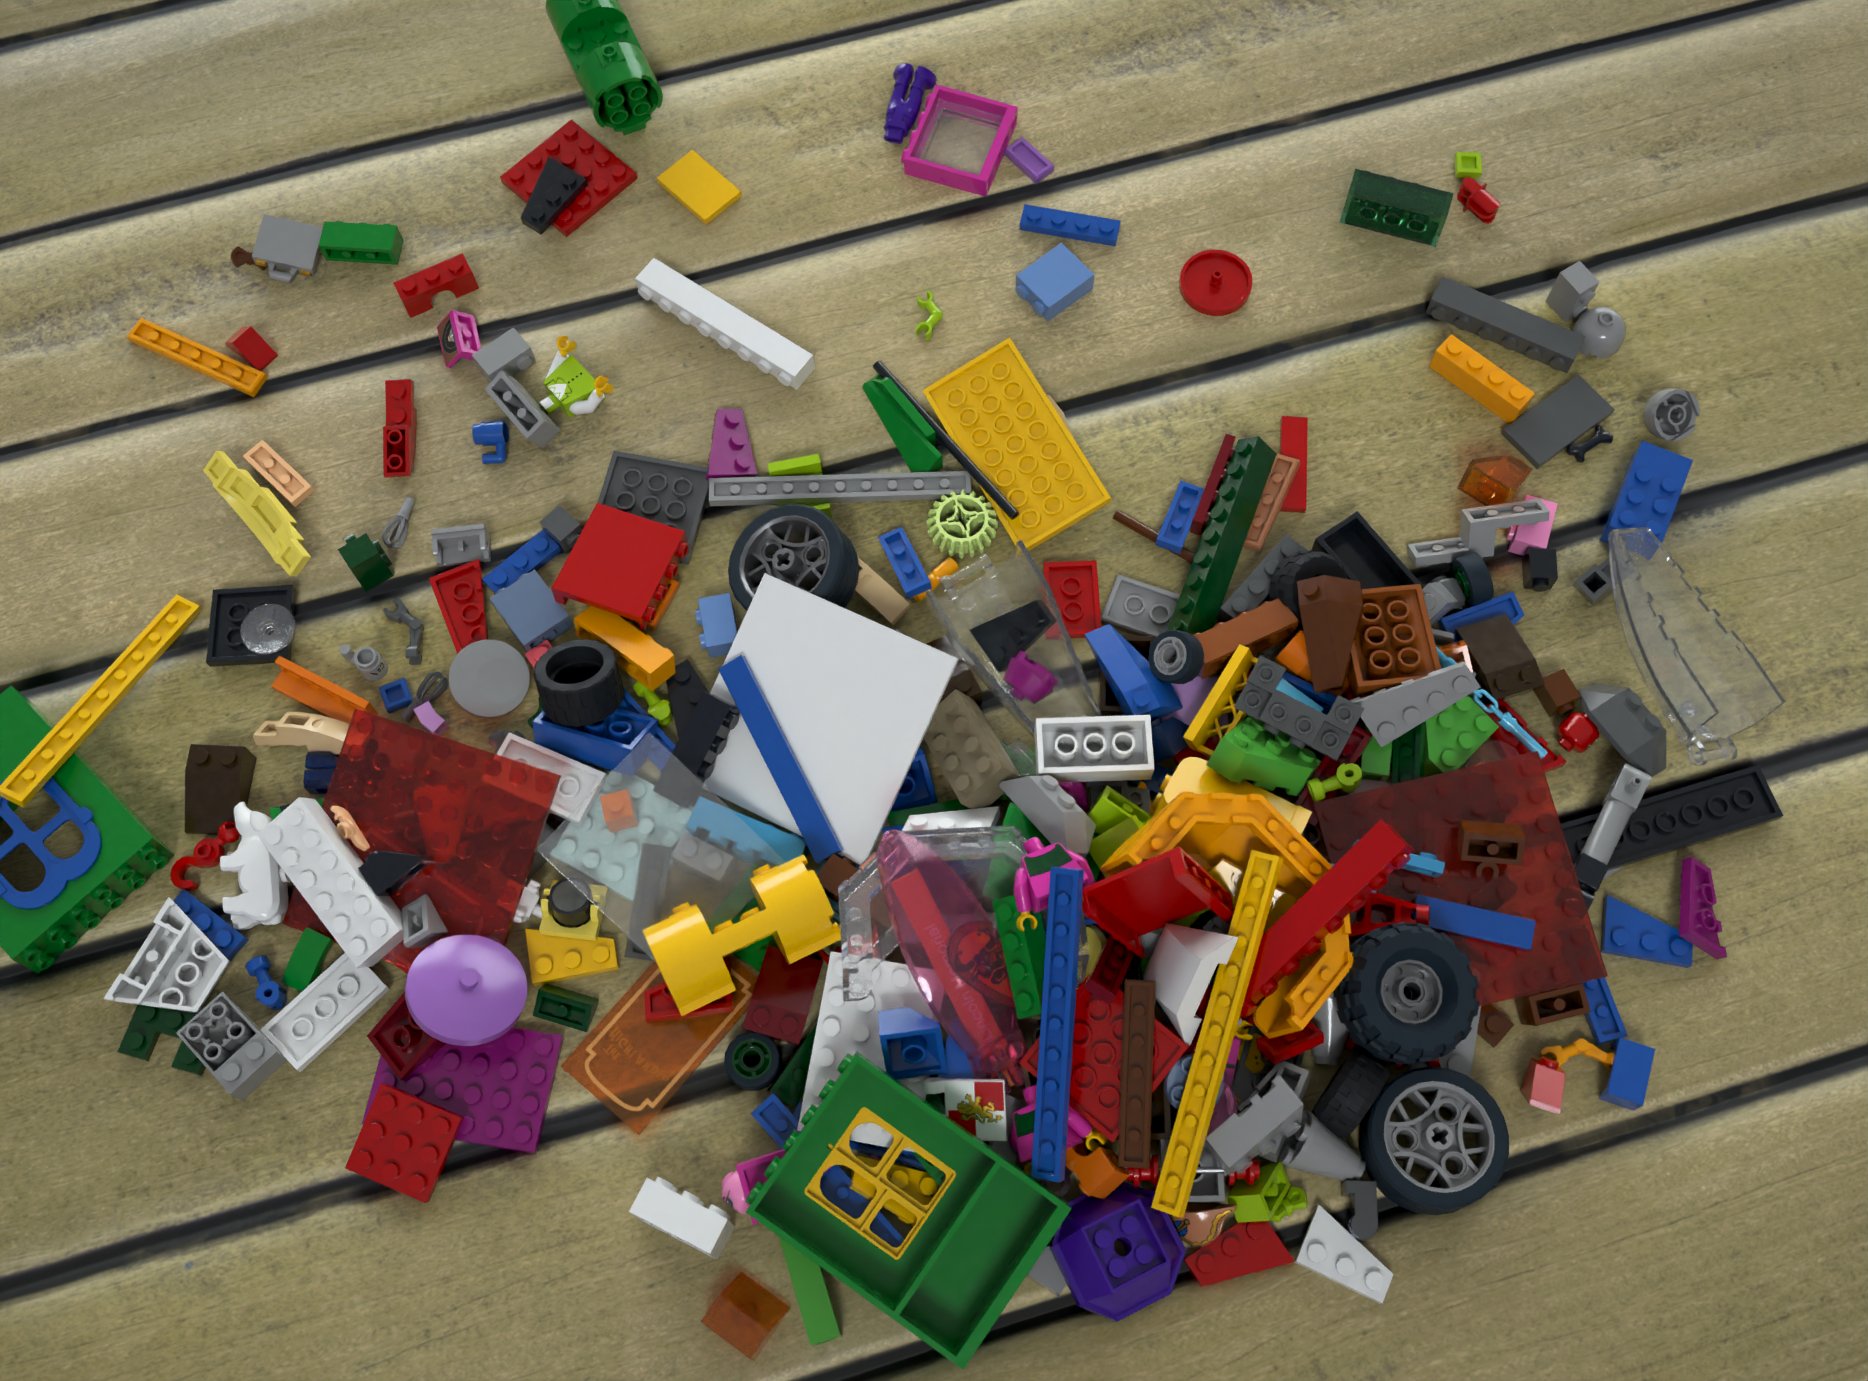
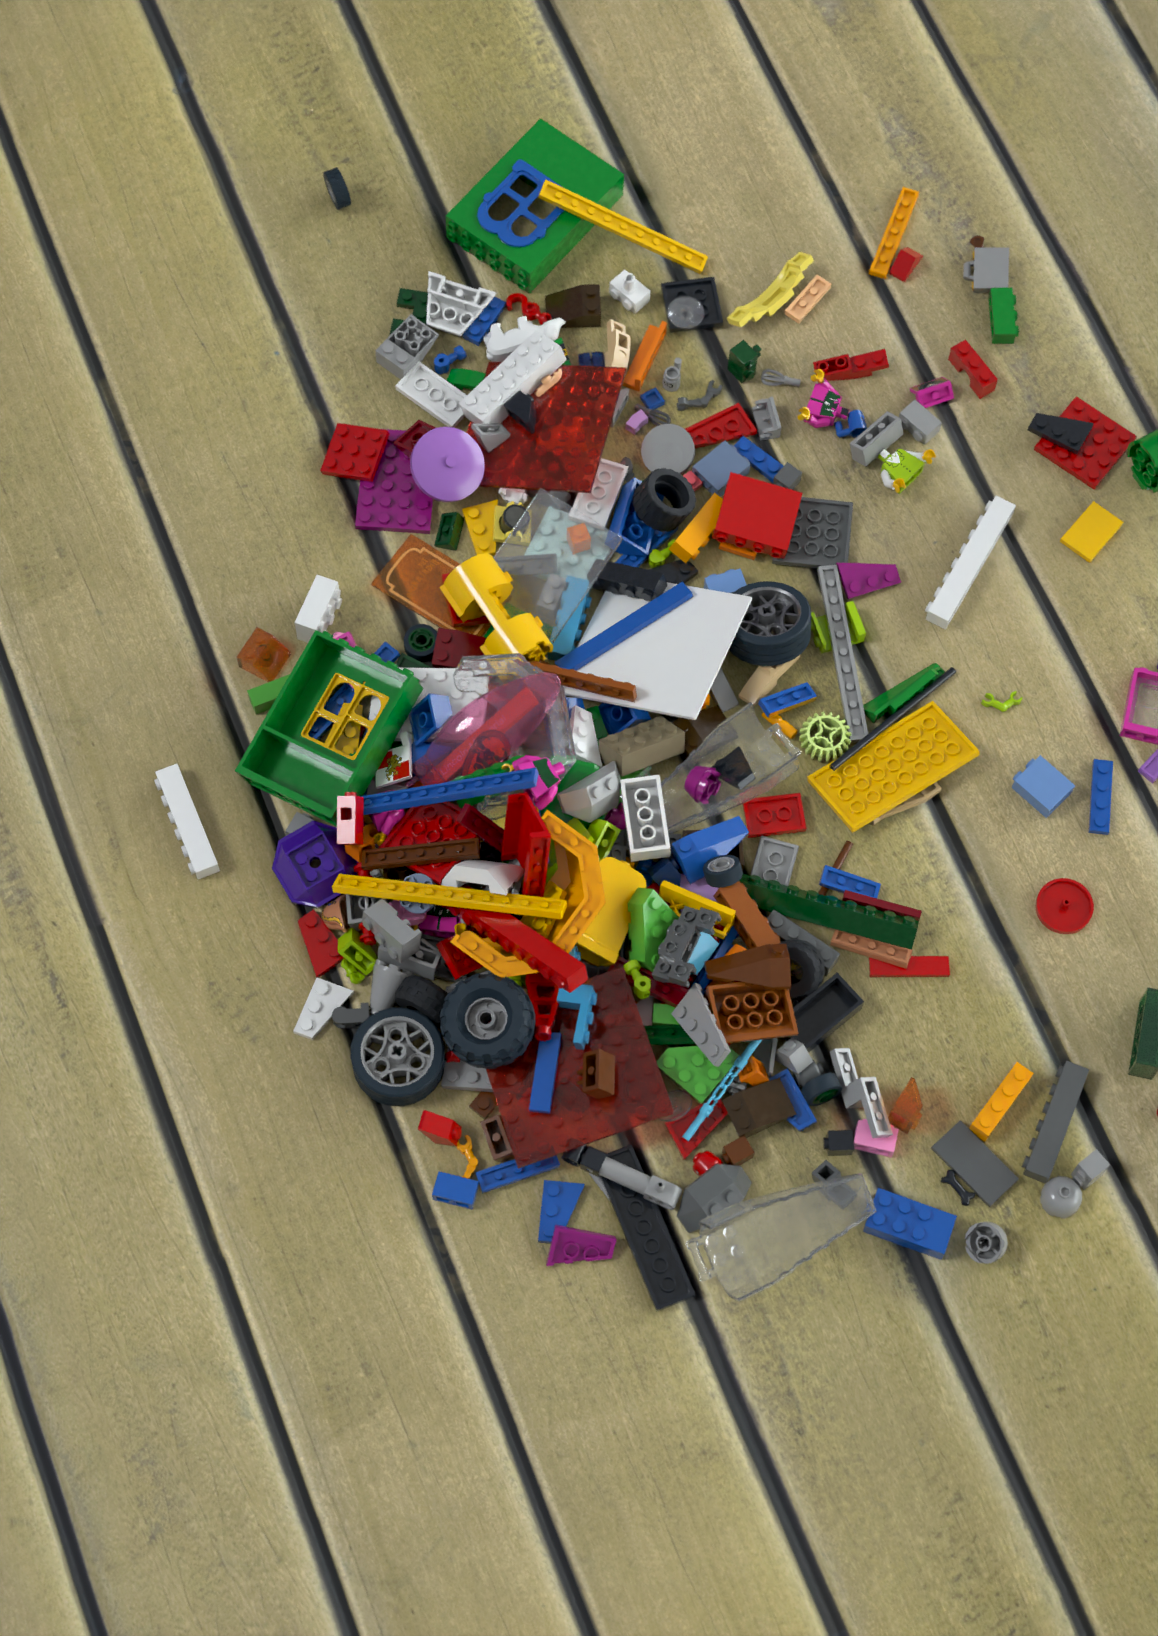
camera: 80 degrees right, 0 degrees up
(209, 707) = (629, 291): none -> white brick
(453, 470) = (823, 404): none -> torso
(870, 811) = (590, 682): none -> dark orange plate
(1080, 1176) = (350, 819): none -> brick

